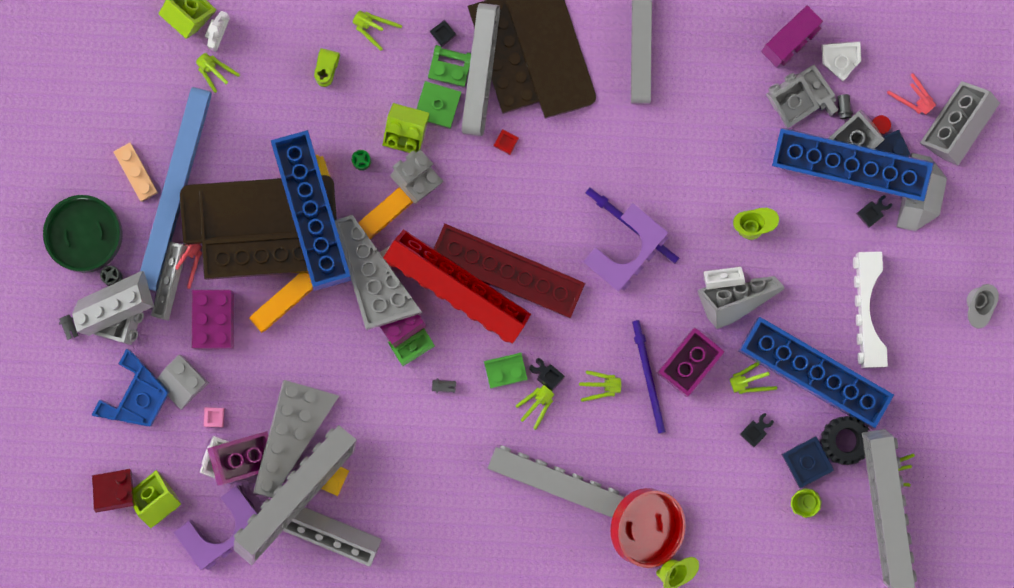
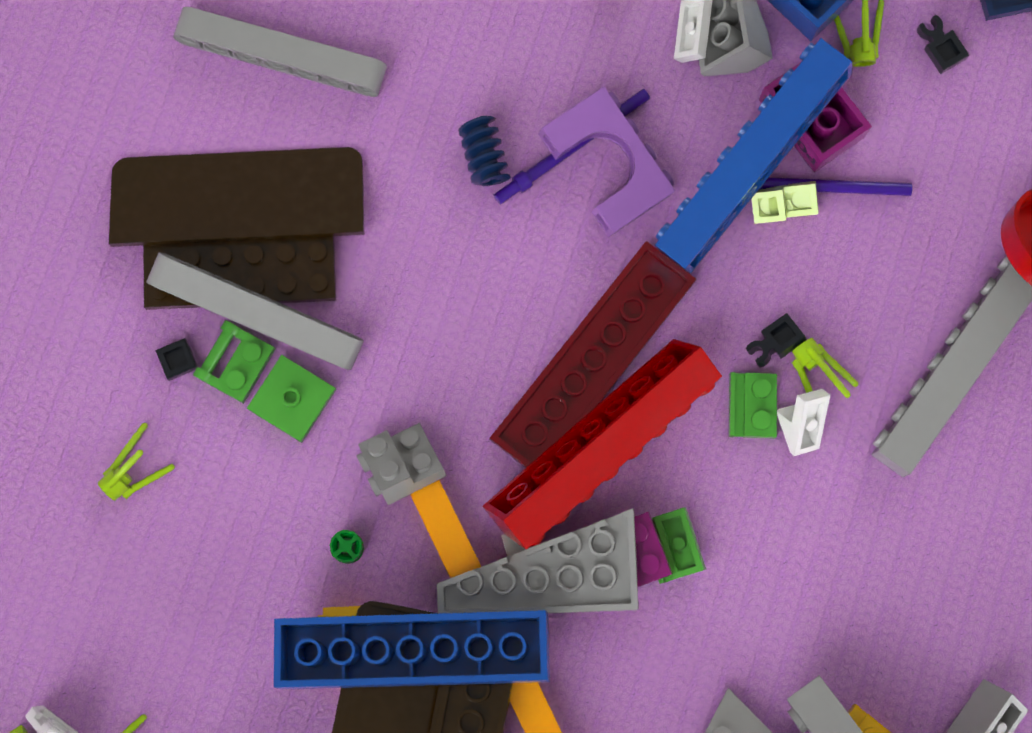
camera: 75 degrees left, 5 degrees down
(326, 63) = (170, 562): lime piece -> none
(405, 128) = (316, 459): lime slope -> none
(443, 386) = (754, 511): dark grey pin -> none
(502, 401) = (804, 421): none -> white slope
(506, 142) = (383, 306): red tile -> none
(612, 173) = (481, 152): none -> dark blue piece
(612, 385) = (819, 247): lime plant -> none
(632, 358) = (785, 201): none -> yellowish green slope
(647, 330) = (755, 155): none -> blue brick

